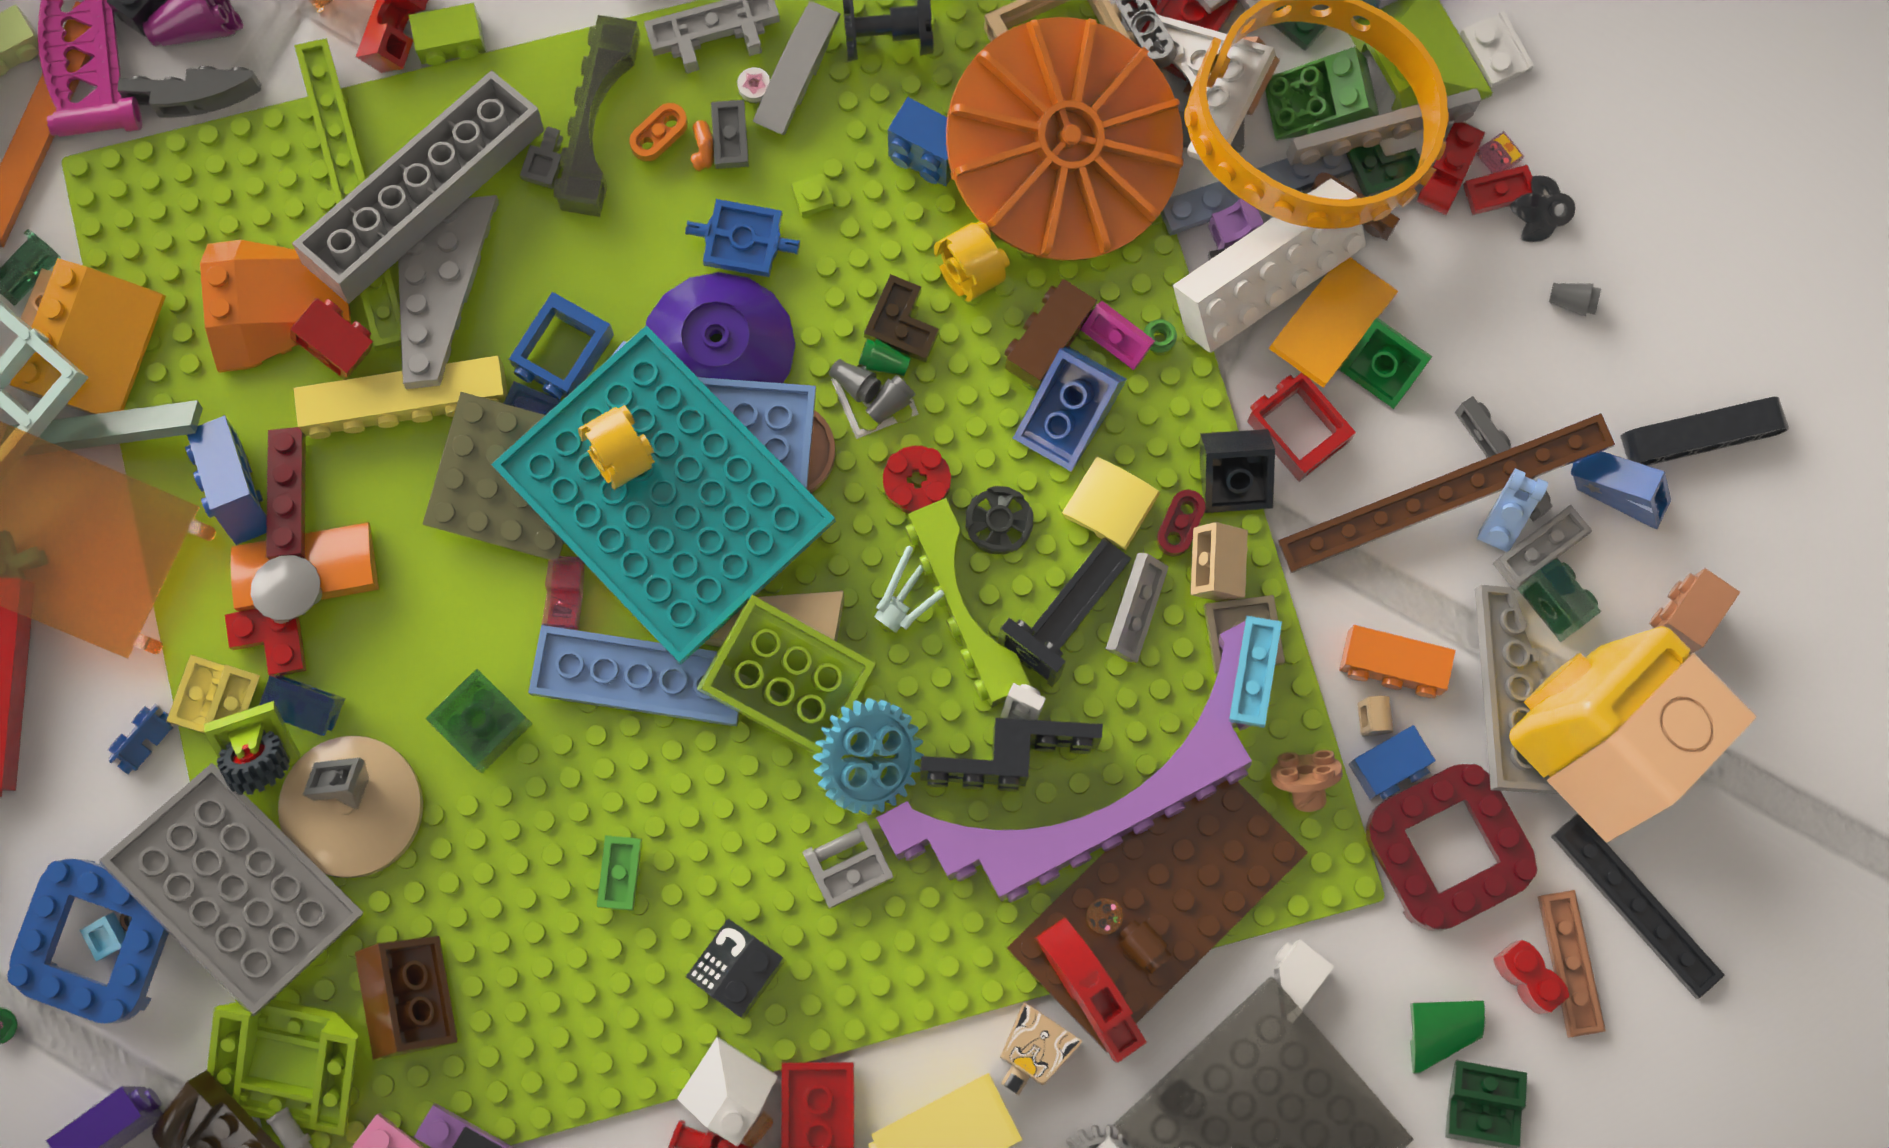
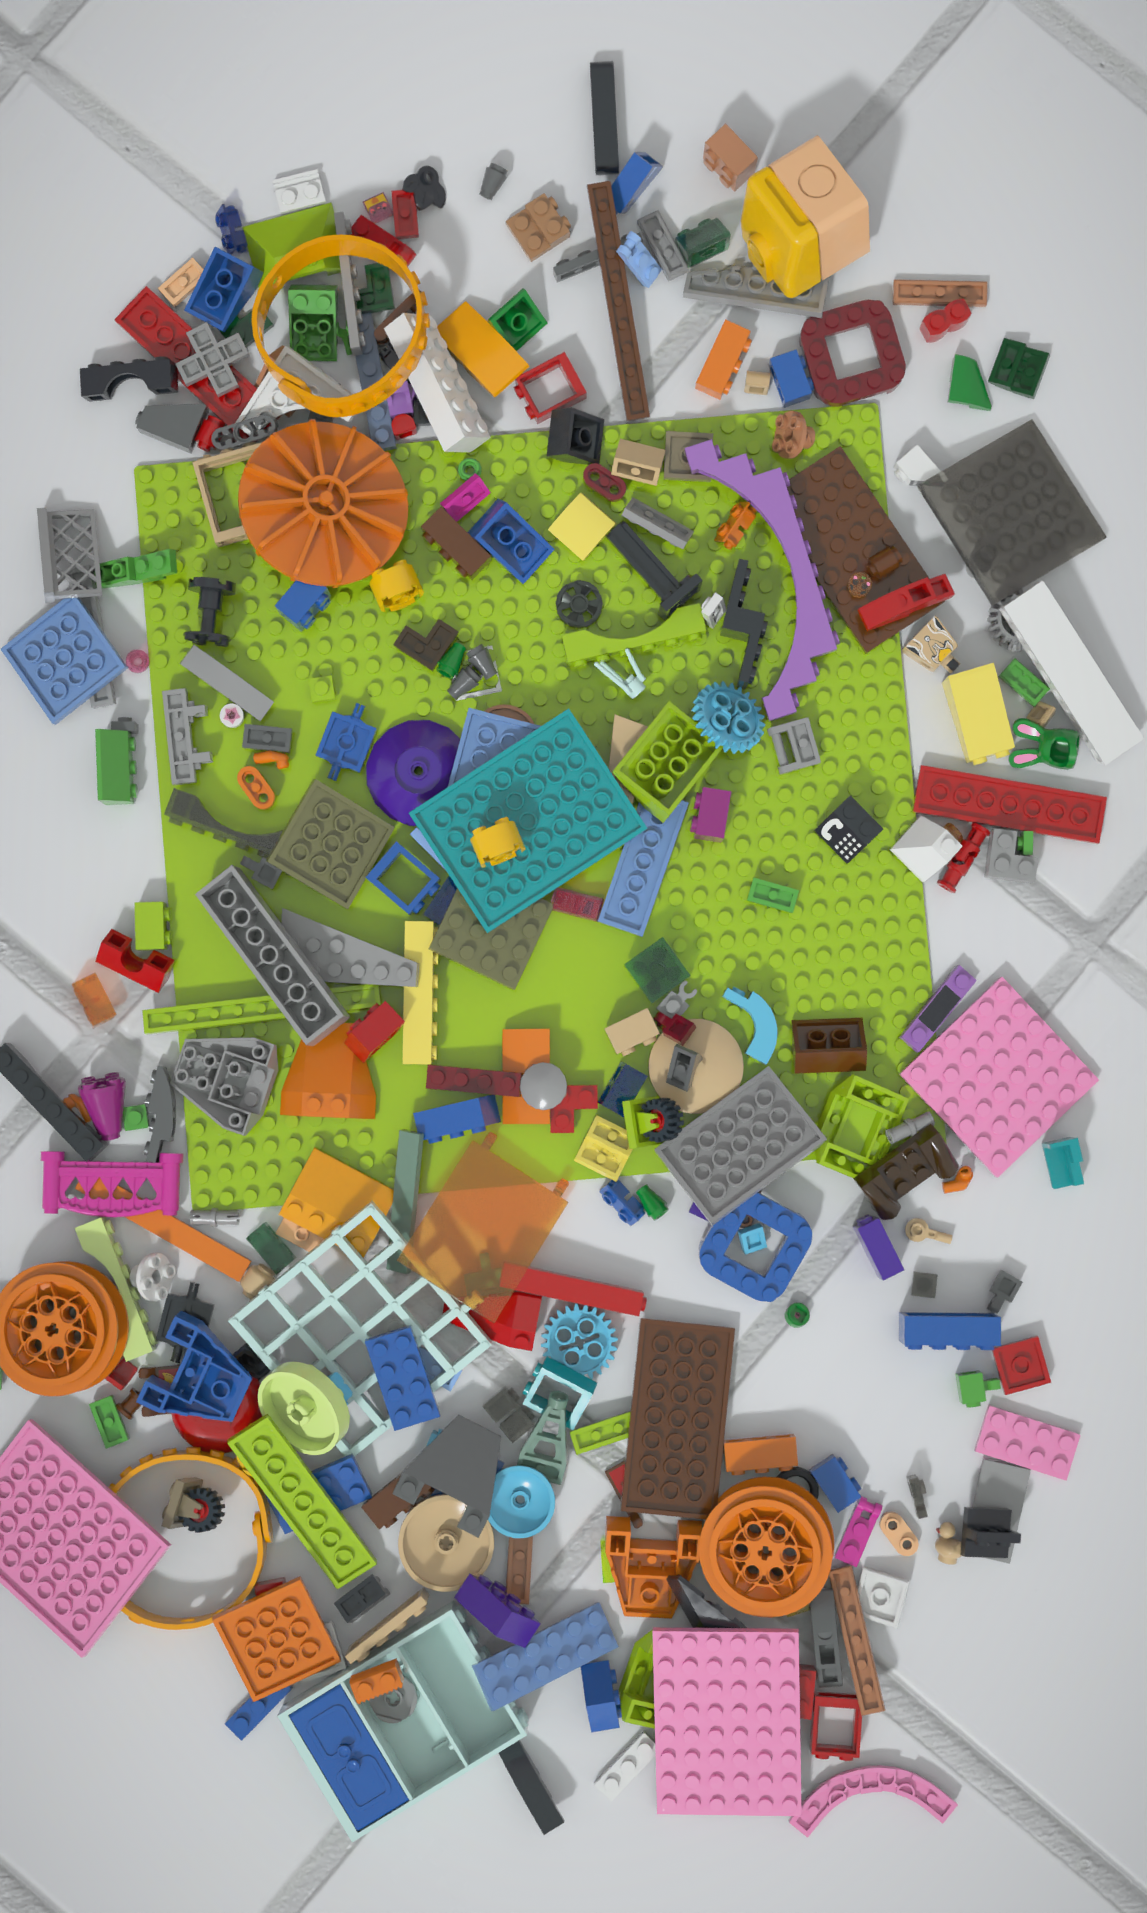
camera: 75 degrees left, 10 degrees up
(55, 185) = (214, 1217): none -> light grey pin
(143, 780) = (652, 1203): none -> green cone
(182, 57) = (135, 1117): none -> bright green plate
(242, 165) = (227, 1079): none -> light grey wedge
(386, 703) = (632, 1031): none -> tan brick
(398, 764) = (676, 1029): none -> dark red plate
(429, 892) = (764, 1022): none -> medium azure arch
(438, 759) = (675, 1002): none -> light grey plate
(591, 236) = (330, 844): none -> olive plate
(720, 757) = (711, 814): none -> magenta brick
(928, 464) = (550, 663): red plate -> none
(1146, 713) = (740, 515): none -> orange hinge
(1201, 237) = (403, 426): none -> red brick
(1255, 671) = (723, 451): medium azure plate -> none
(1526, 372) = (539, 227): none -> medium nougat plate
(1638, 906) = (911, 241): black tile -> none

